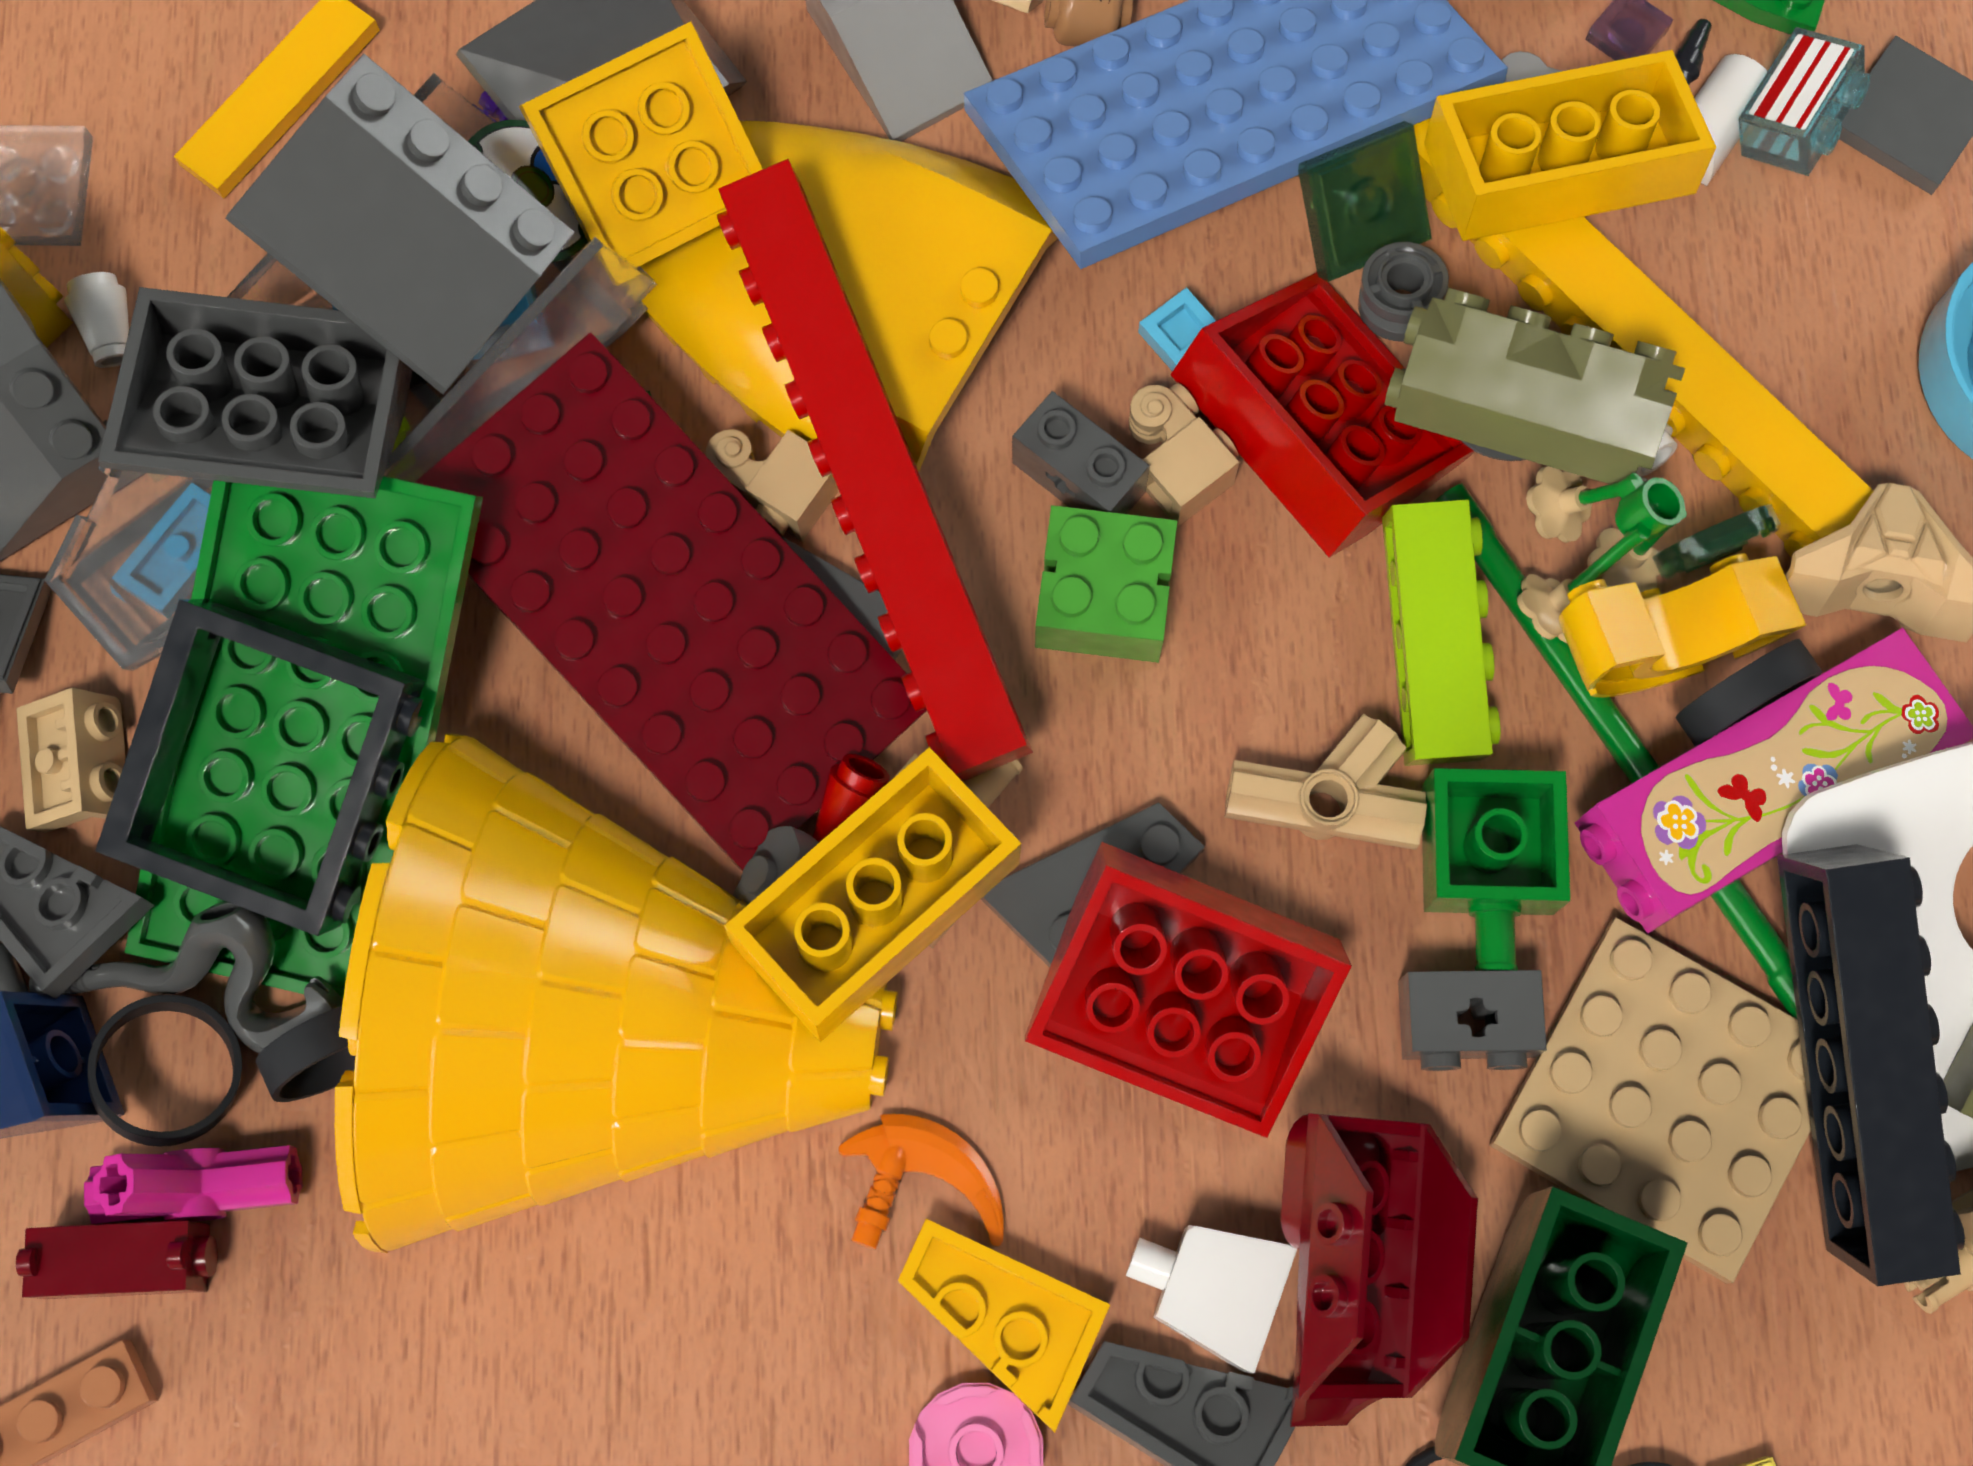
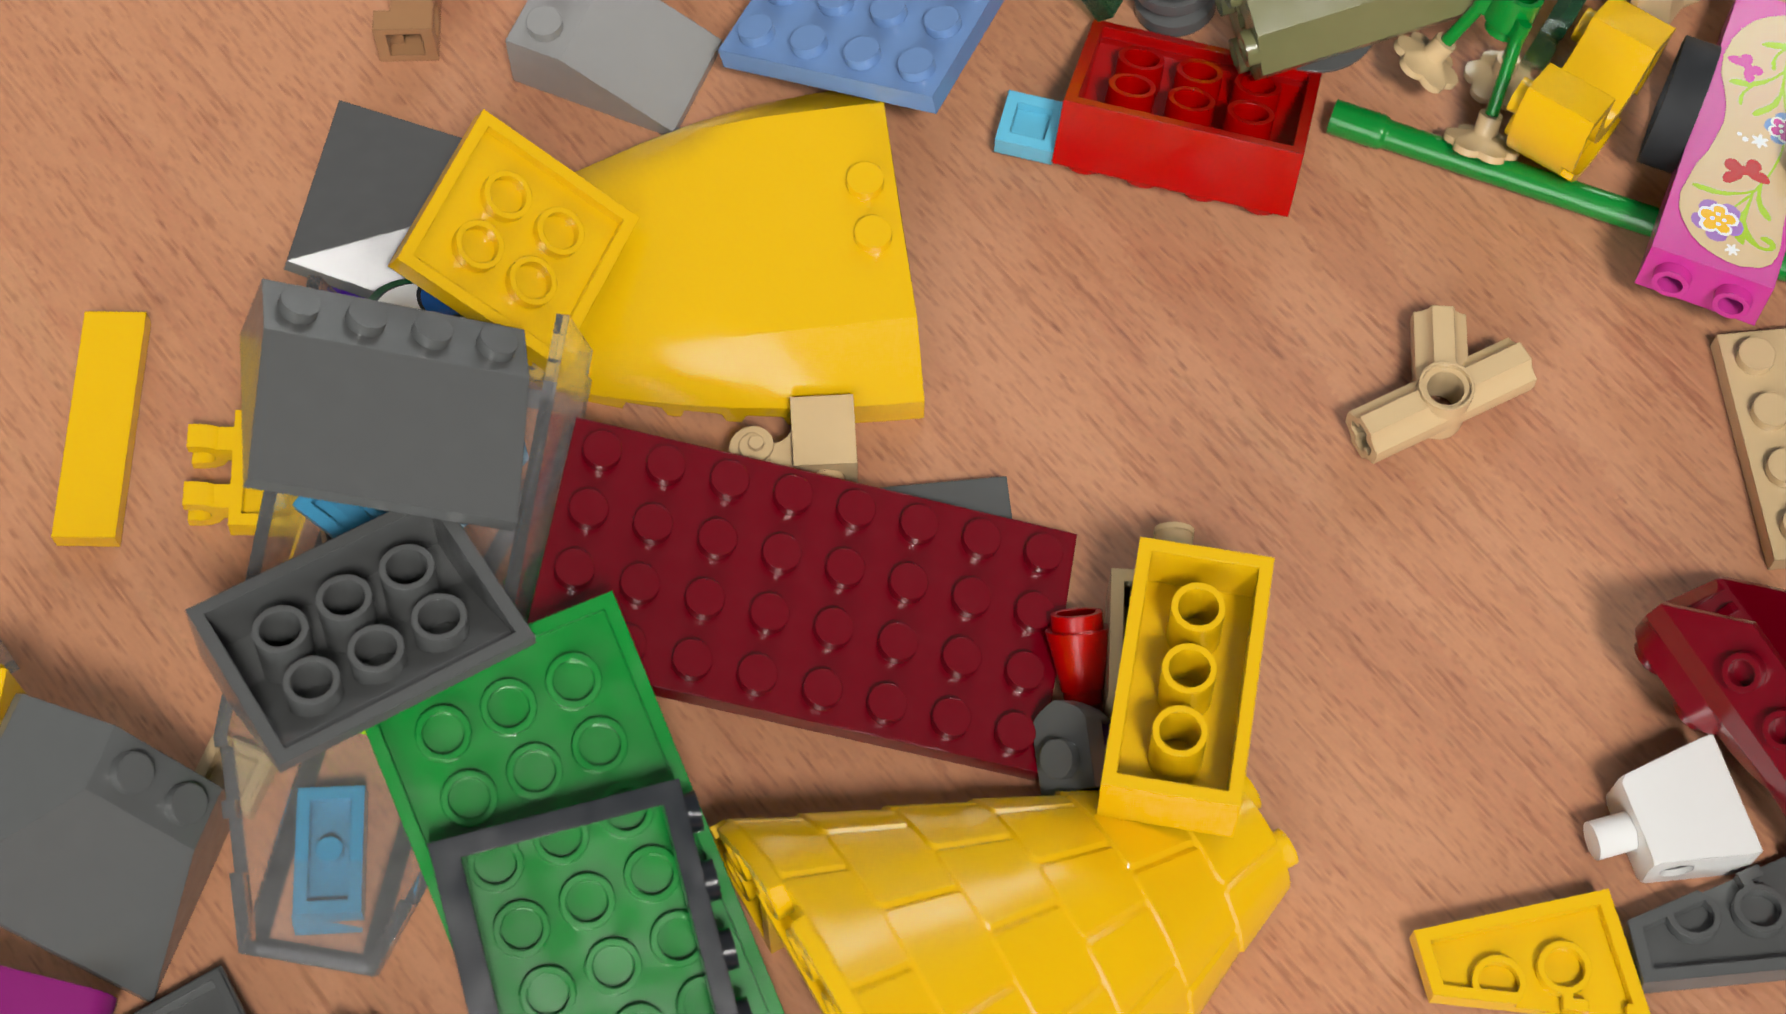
camera: 40 degrees left, 10 degrees down
(100, 315) = (93, 697): white cone -> none
(874, 473) = (901, 367): red brick -> none
(924, 1147) = (1357, 883): orange piece -> none
(1041, 896) = (1323, 589): dark grey wing -> none
(1078, 459) = (1040, 274): dark grey brick -> none
(1105, 584) = (1144, 350): bright green piece -> none
(1186, 990) = (1463, 606): red slope -> none
(1193, 460) = (1118, 209): tan brick -> none
(1439, 633) = (1418, 213): lime brick -> none
(1495, 852) = (1599, 343): green brick -> none
(1506, 1001) = (1649, 487): dark grey brick -> none

